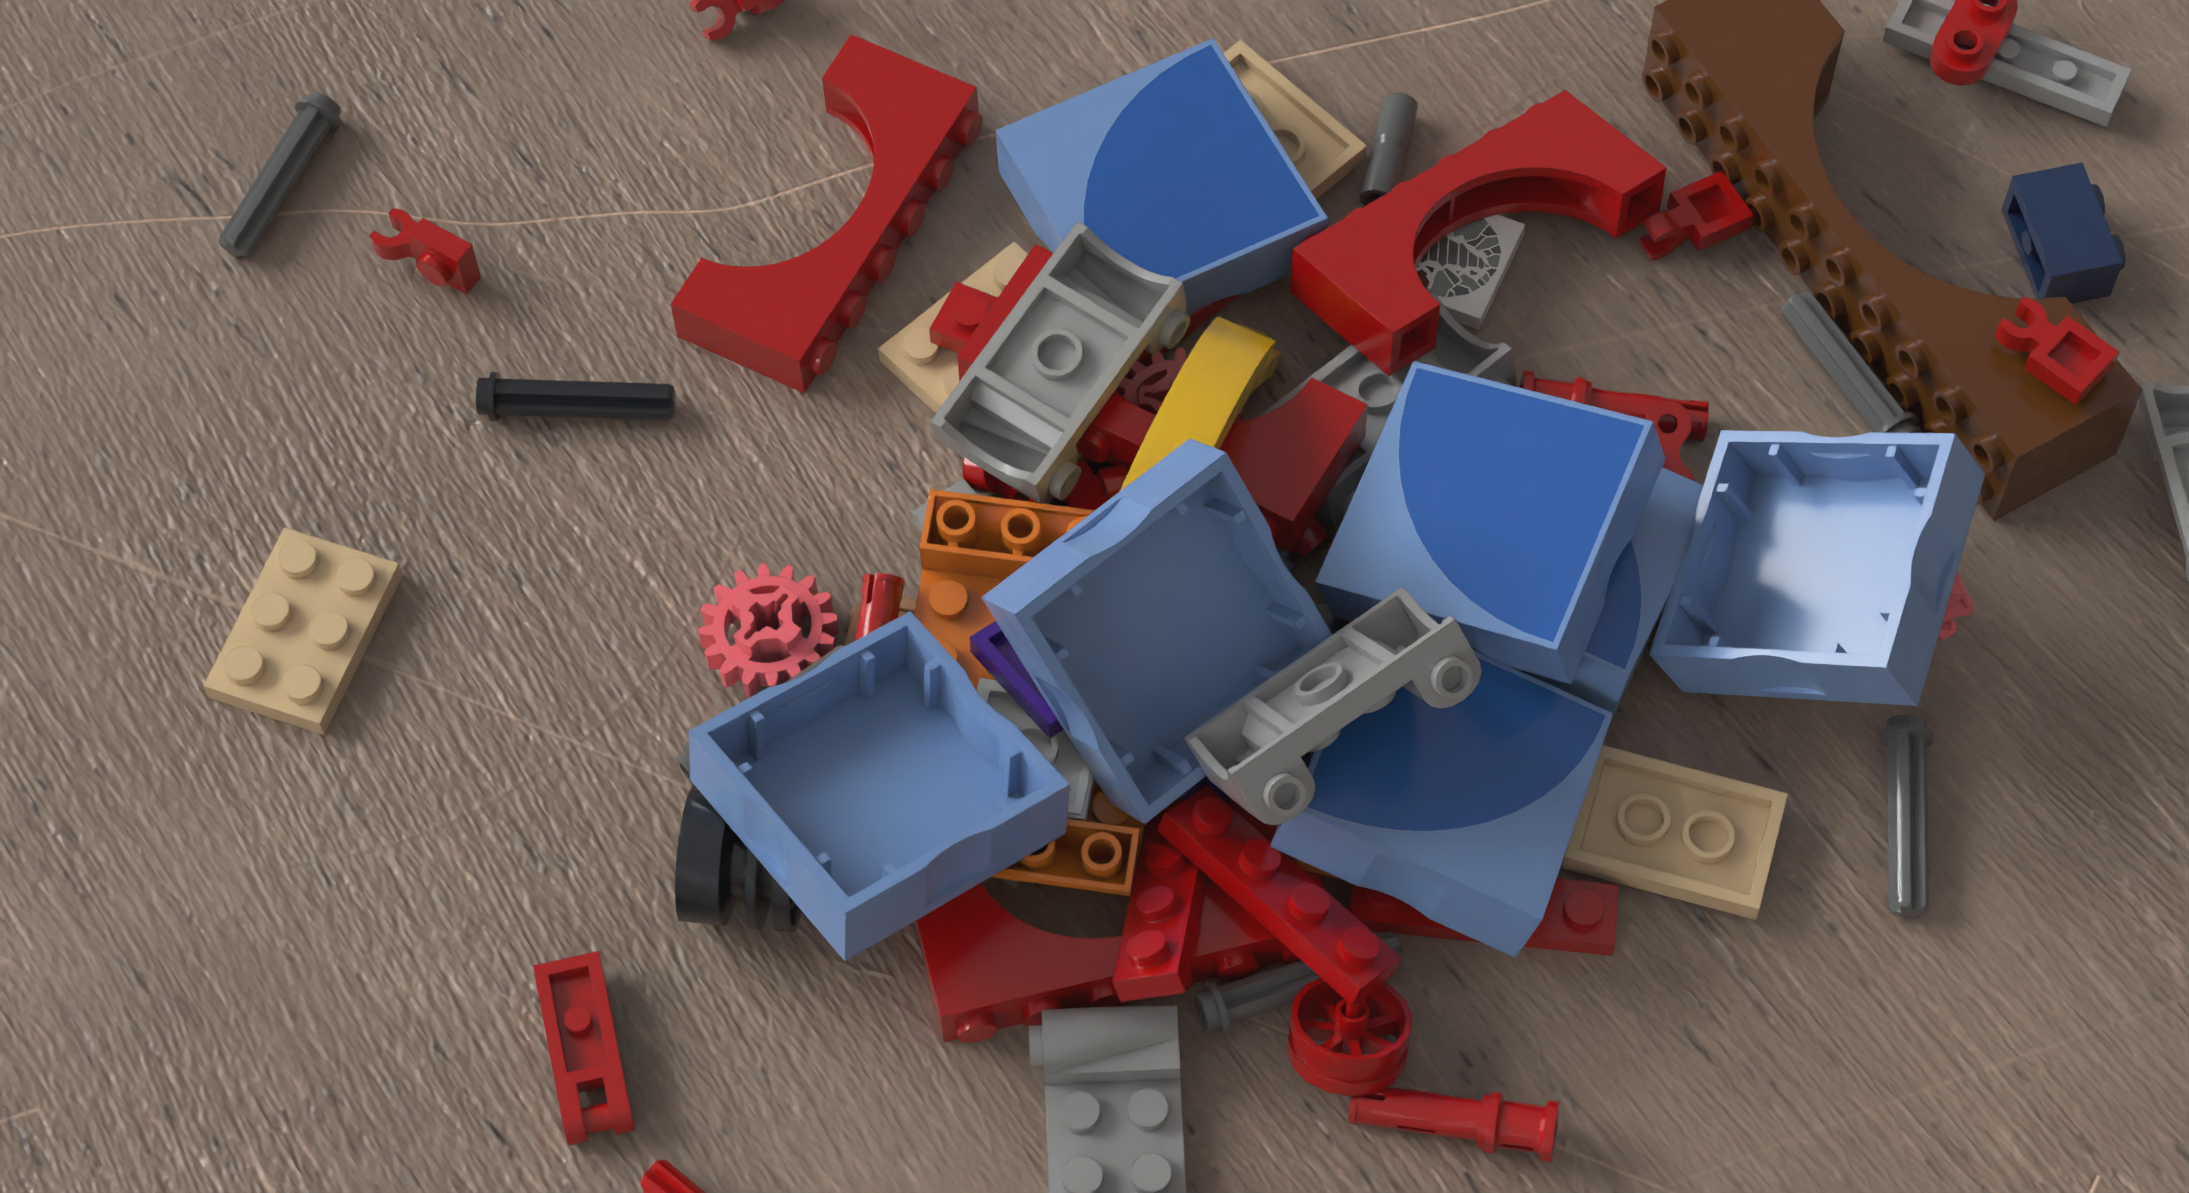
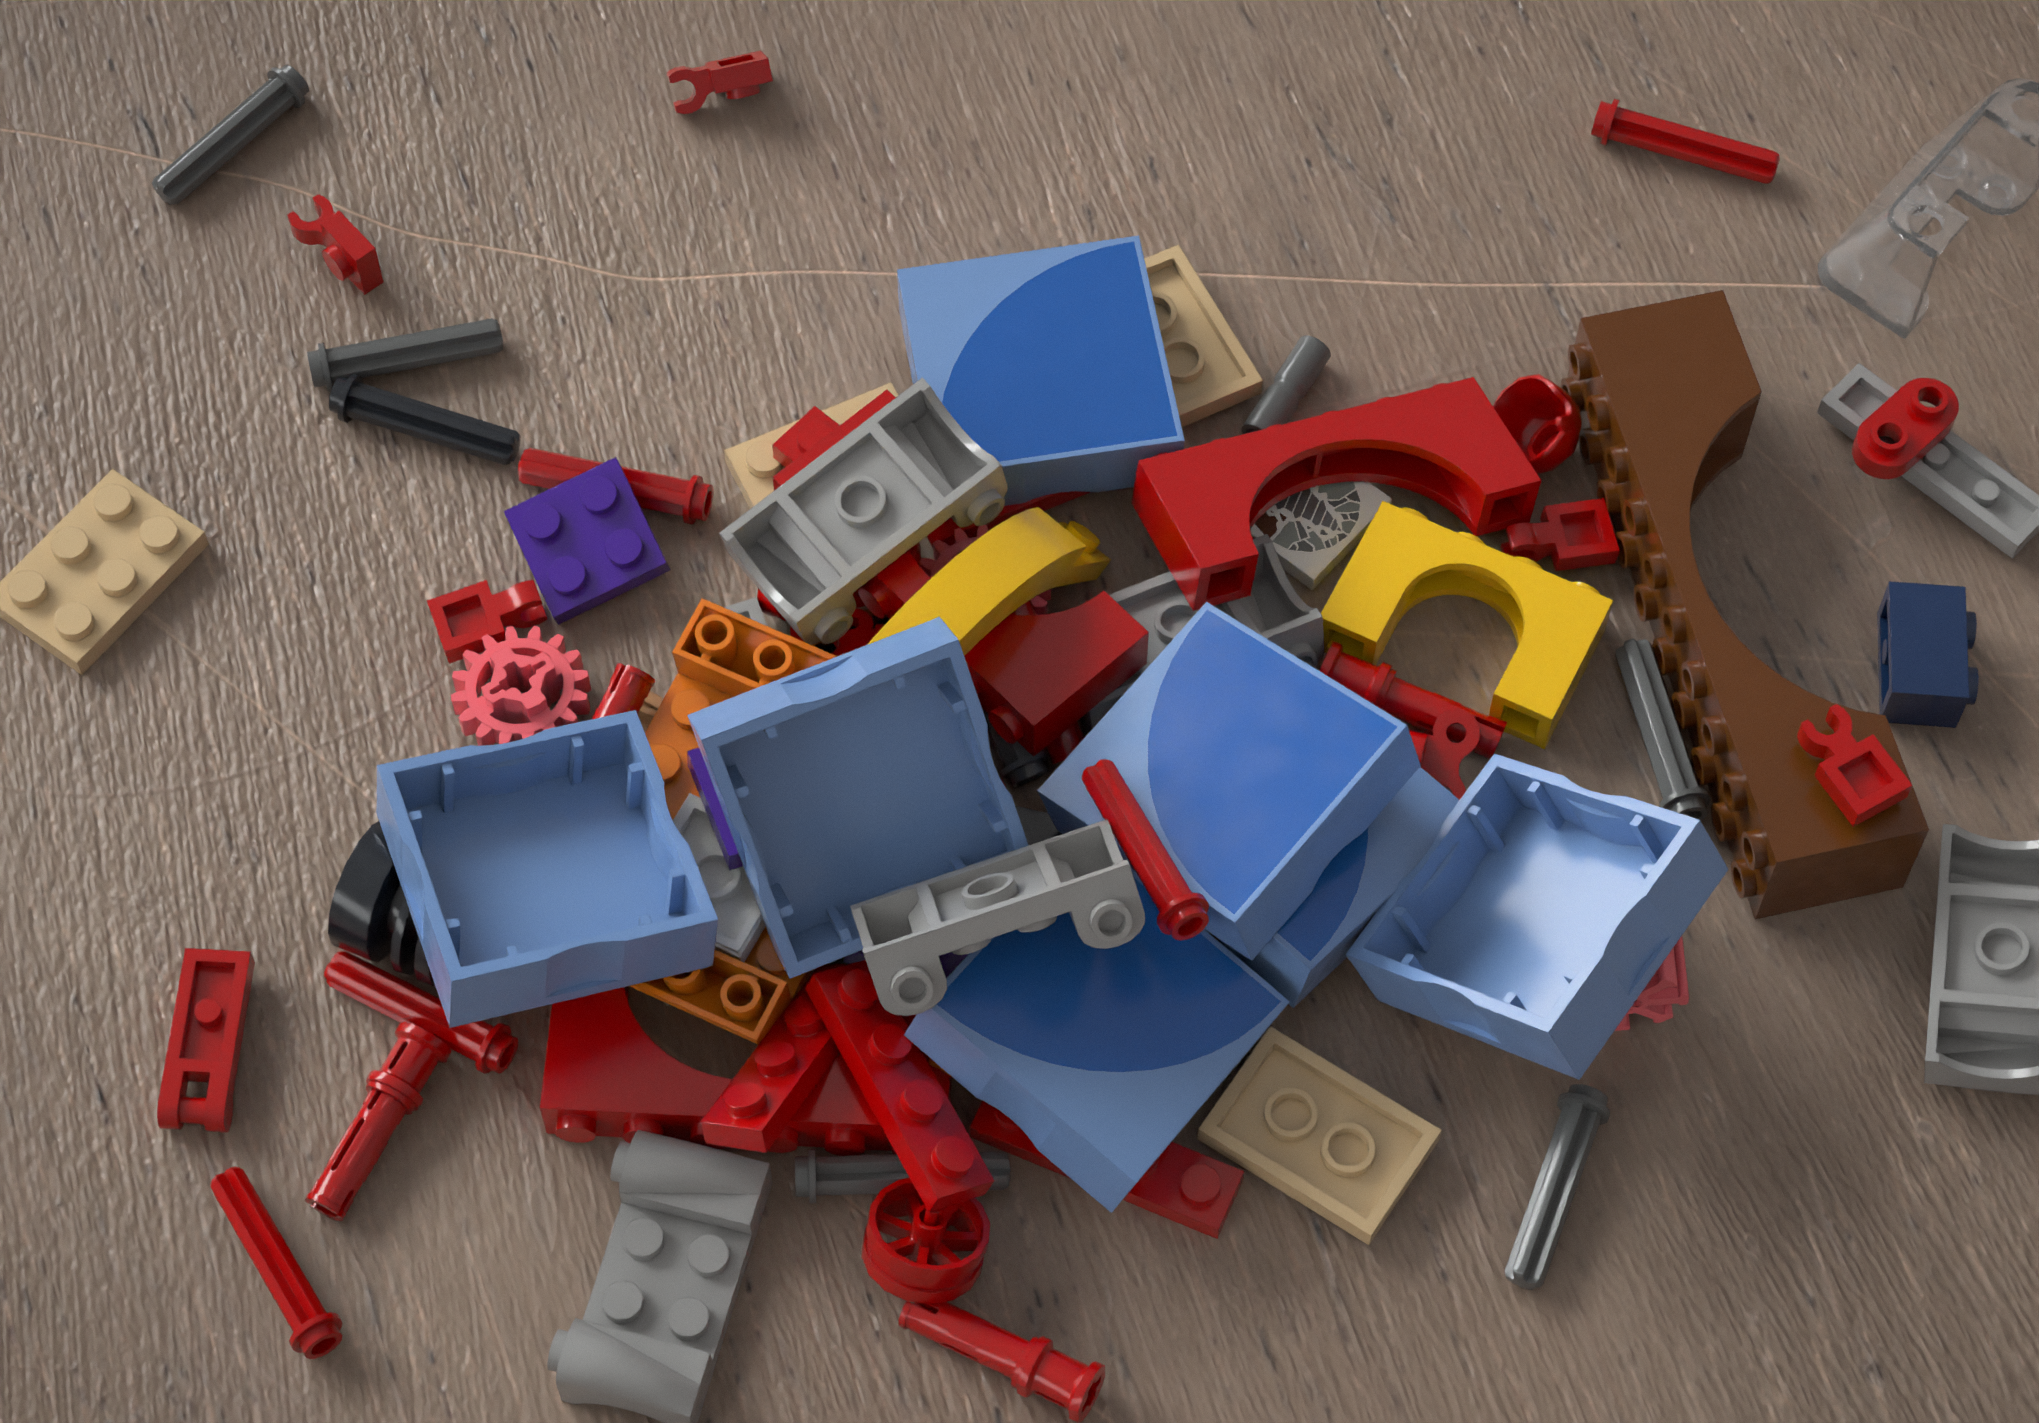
camera: 15 degrees right, 0 degrees up
(530, 338) = (405, 351): none -> dark grey axle
(693, 569) = (473, 612): none -> red plate
(779, 469) = (586, 541): none -> dark purple plate
(783, 960) = (486, 1044): none -> red axle
(784, 408) = (653, 490): none -> red axle
(785, 1049) = (390, 1096): none -> red pin
(793, 312) = (660, 393): red arch -> none
(1501, 651) = (1180, 910): none -> red axle
(1641, 111) = (1541, 420): none -> red hair
(1710, 293) = (1414, 559): none -> yellow arch

